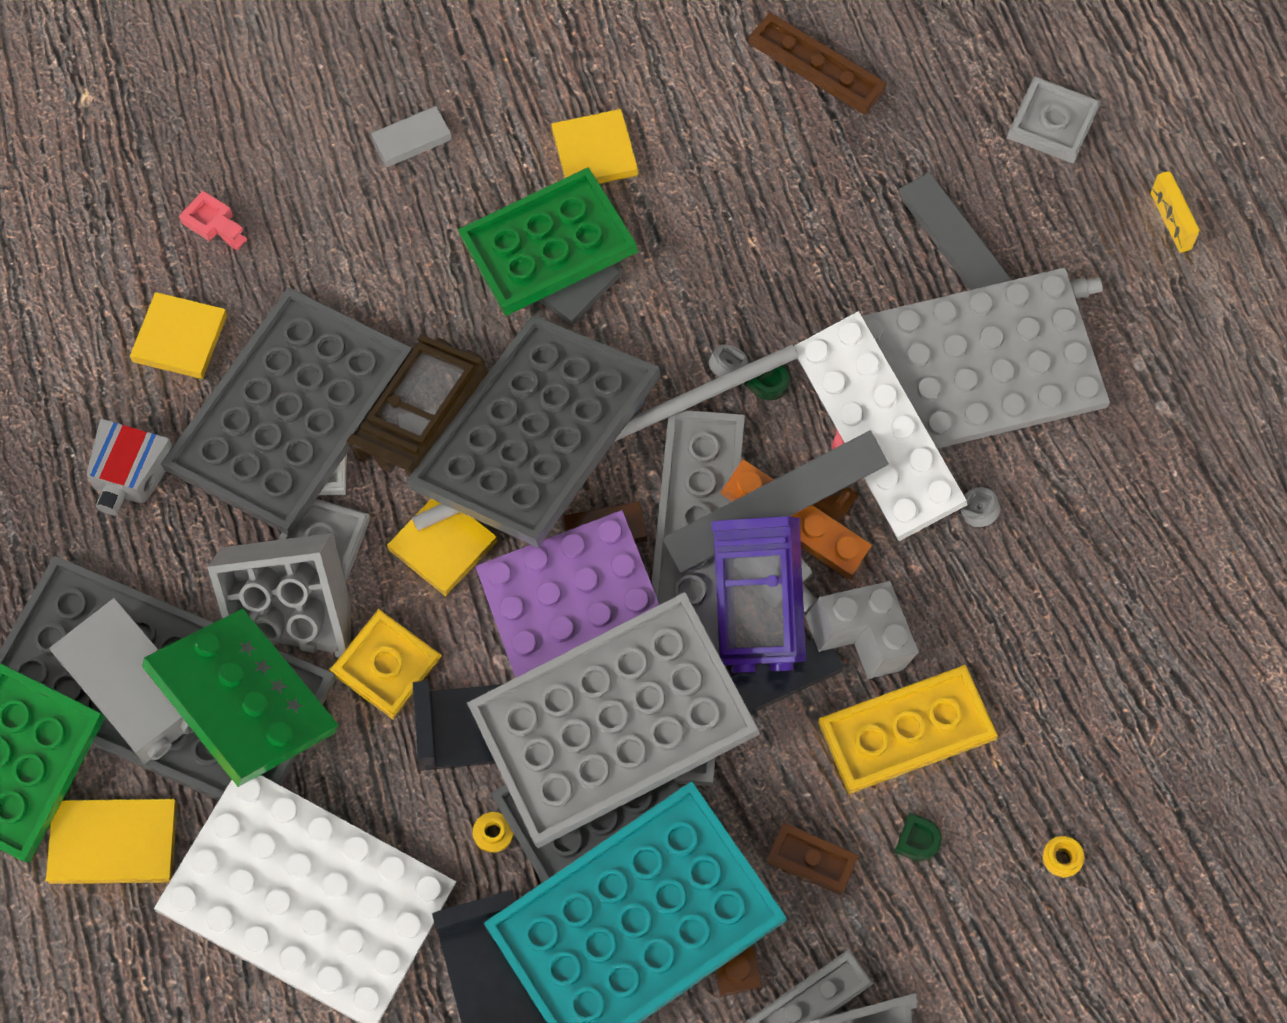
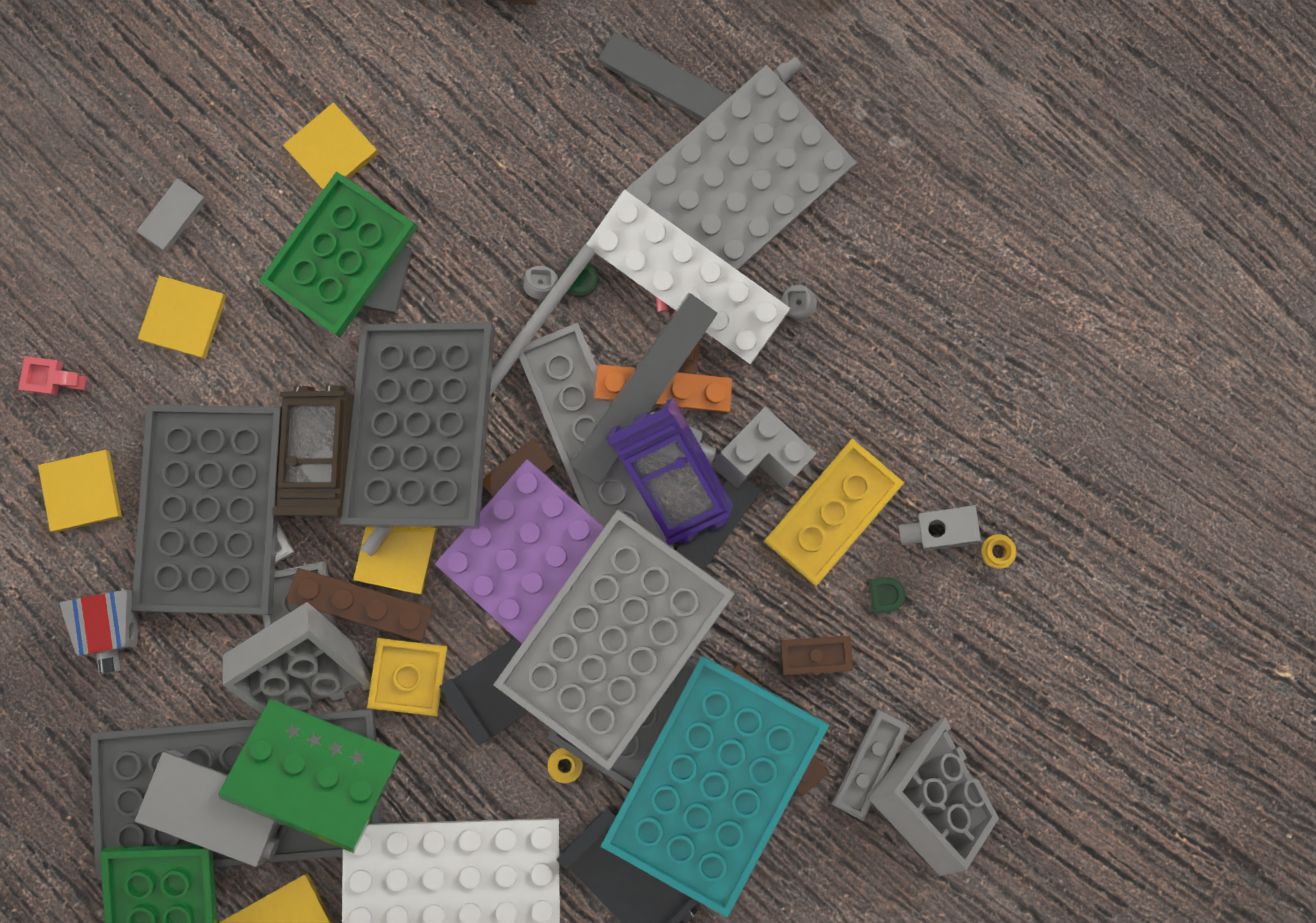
camera: 30 degrees left, 15 degrees up
(367, 229) = (182, 317): none -> yellow tile
(381, 572) = (360, 604): none -> reddish brown plate
(1015, 798) = (959, 526): none -> light grey torso

